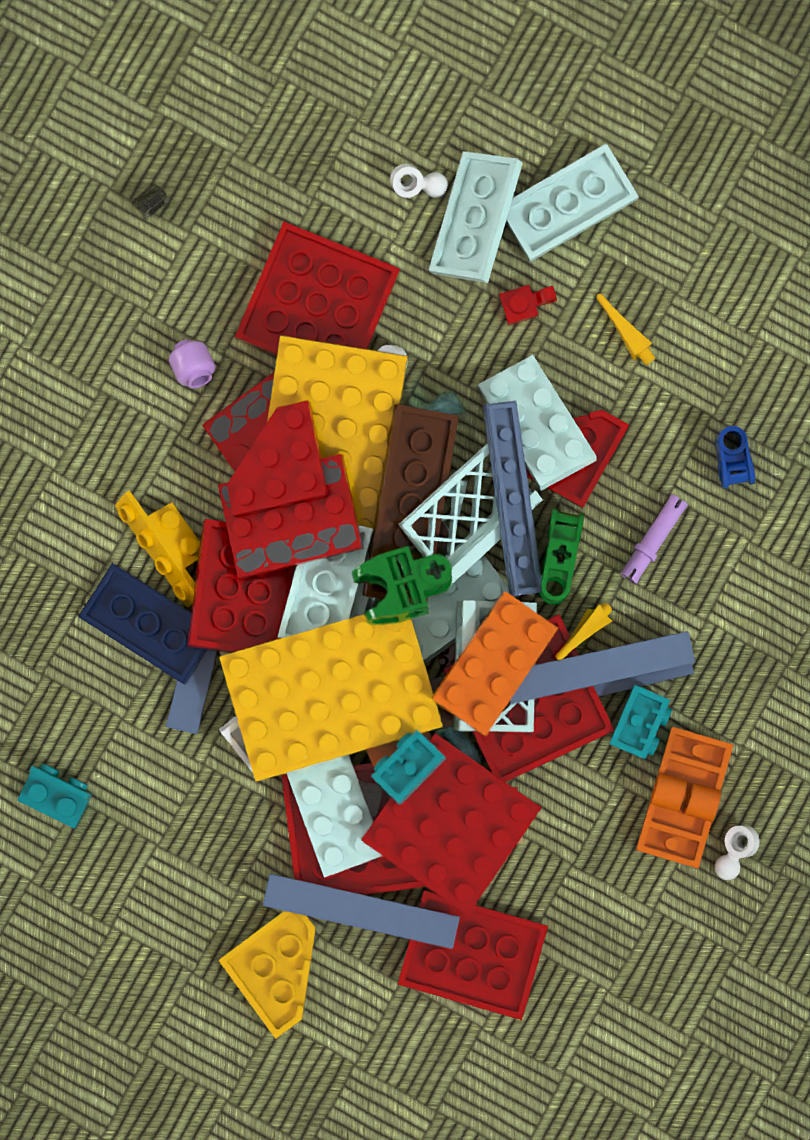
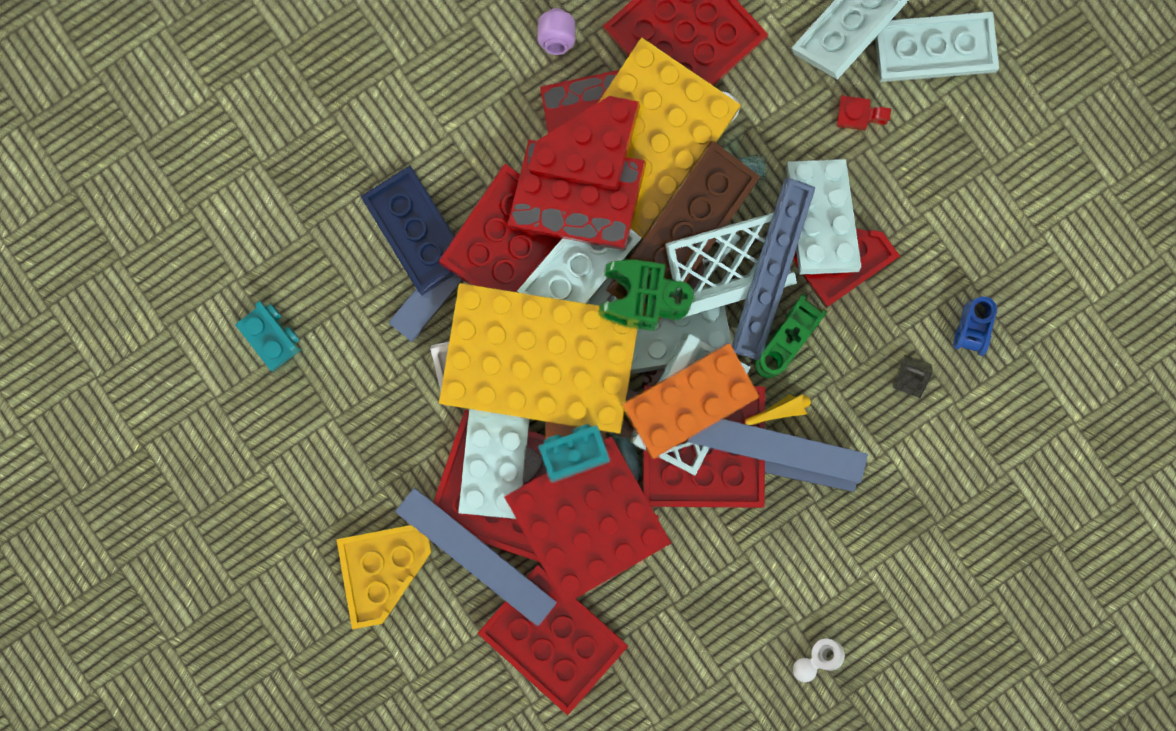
camera: 25 degrees right, 0 degrees up
(166, 540) = (464, 168): yellow bracket -> none
(635, 342) = (936, 186): yellow piece -> none
(640, 722) = (790, 511): teal bracket -> none
(655, 536) = (872, 363): lavender pin -> none
(684, 797) = (797, 593): orange plate -> none
(697, 534) = (913, 376): none -> clear smoke slope

